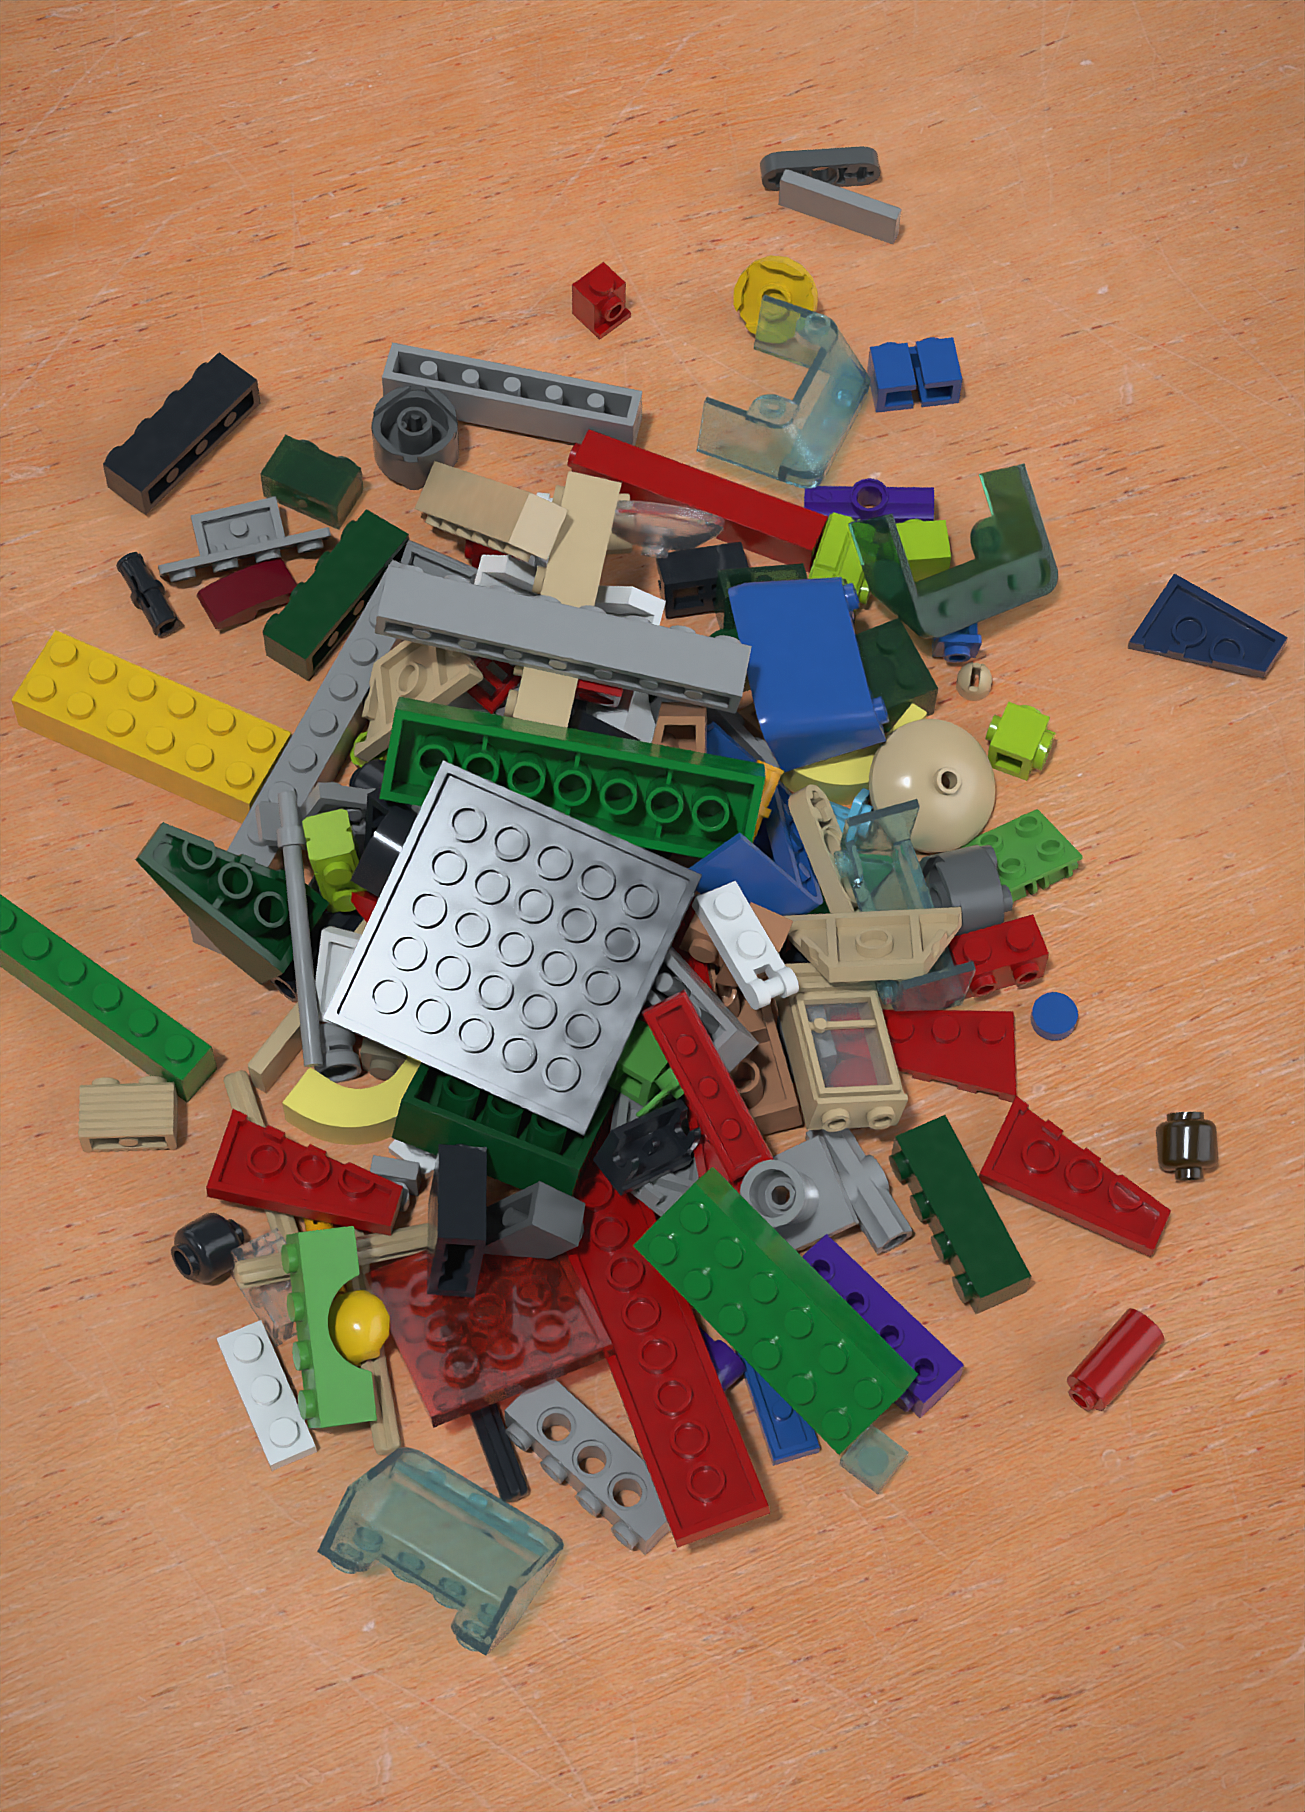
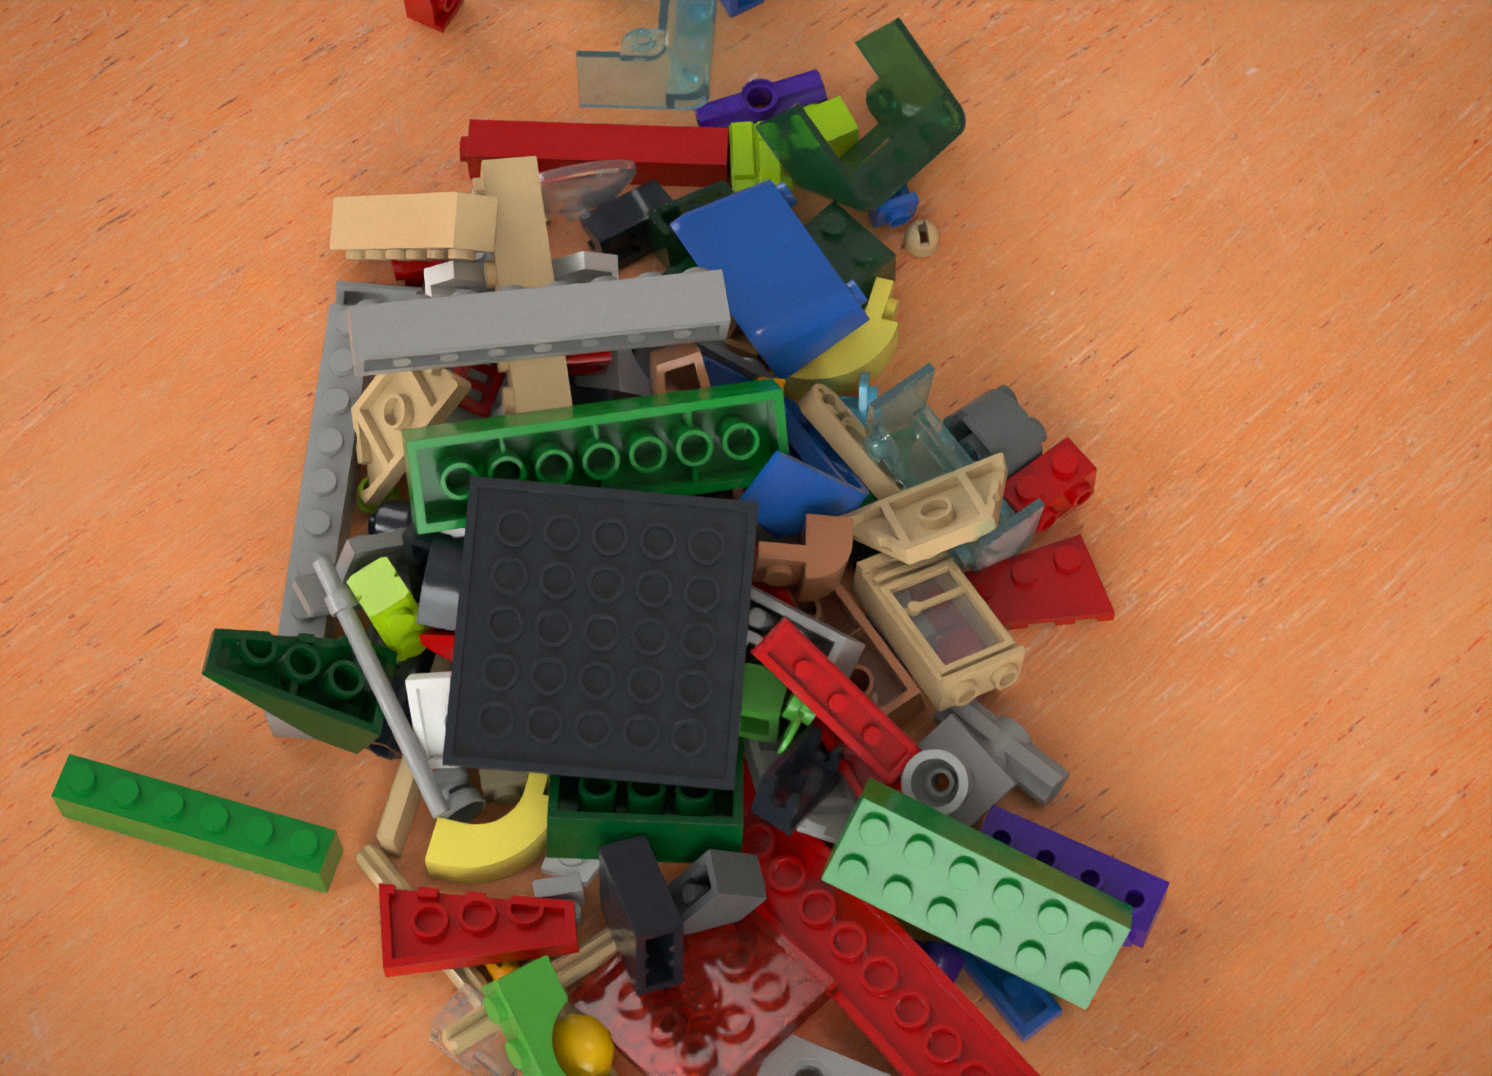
camera: 15 degrees left, 0 degrees up
(128, 1115) = (276, 925): tan brick -> none
(148, 594) = (101, 416): black pin -> none
(149, 726) = (153, 542): yellow brick -> none
(181, 433) = (75, 250): black brick -> none
(205, 1247) = (402, 1026): black head -> none
(240, 533) = (168, 328): light grey bracket -> none
(246, 591) = (195, 383): dark red slope -> none
(312, 481) = (220, 255): clear green brick -> none
(334, 595) = (284, 357): dark green brick -> none
(412, 433) = (302, 178): dark grey brick -> none
(517, 396) = (379, 113): light grey brick -> none
(744, 945) = (819, 556): white plate -> none
(873, 1458) = (1117, 1002): clear light blue plate -> none
(912, 767) = (902, 341): tan dish -> none
(959, 1214) = (1107, 743): dark green brick -> none
(1019, 740) = (987, 279): lime brick -> none
(1030, 853) = (1039, 378): bright green hinge -> none
(1054, 1016) = (1119, 526): blue tile -> none
(1055, 1174) = (1185, 675): red wing -> none
(1114, 1360) = (1303, 829): red brick -> none
(1187, 1145) = (1290, 603): dark brown head -> none
(1206, 631) = (1119, 120): dark blue wing -> none

